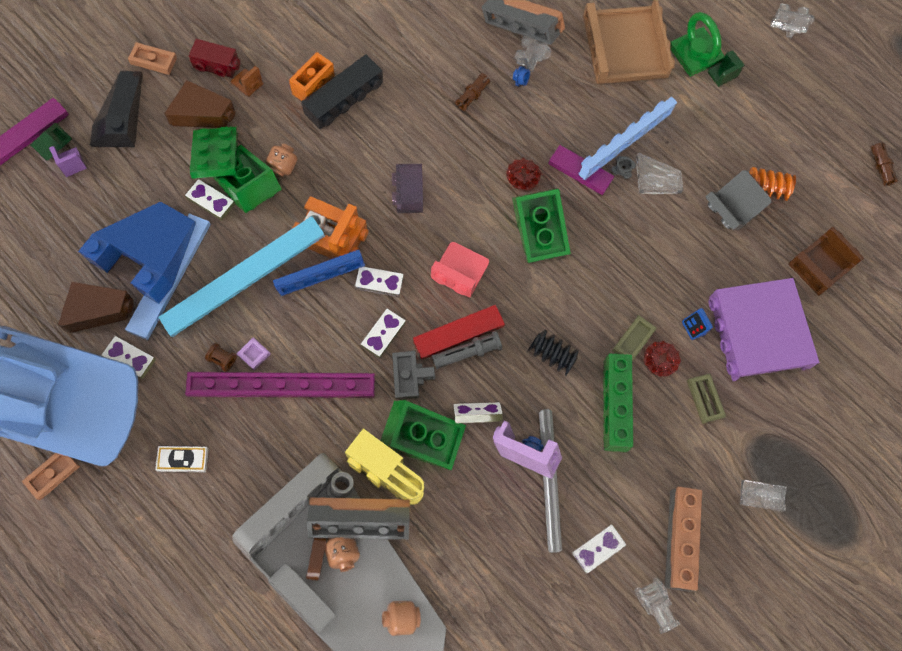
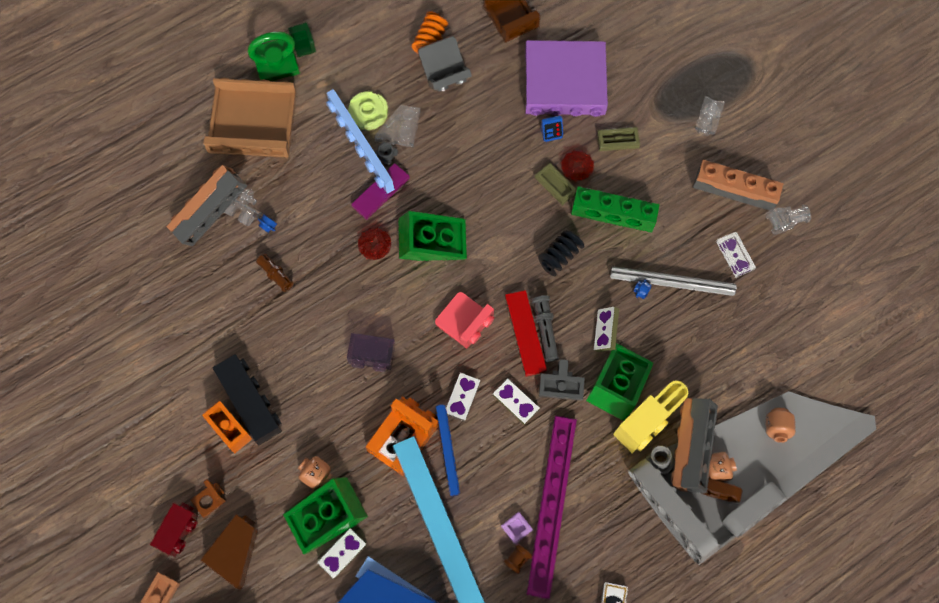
camera: 75 degrees left, 0 degrees up
(214, 152) = (292, 540): green plate -> none
(540, 462) = (667, 277): lavender panel -> none
(667, 143) = (368, 110): none -> yellowish green tile

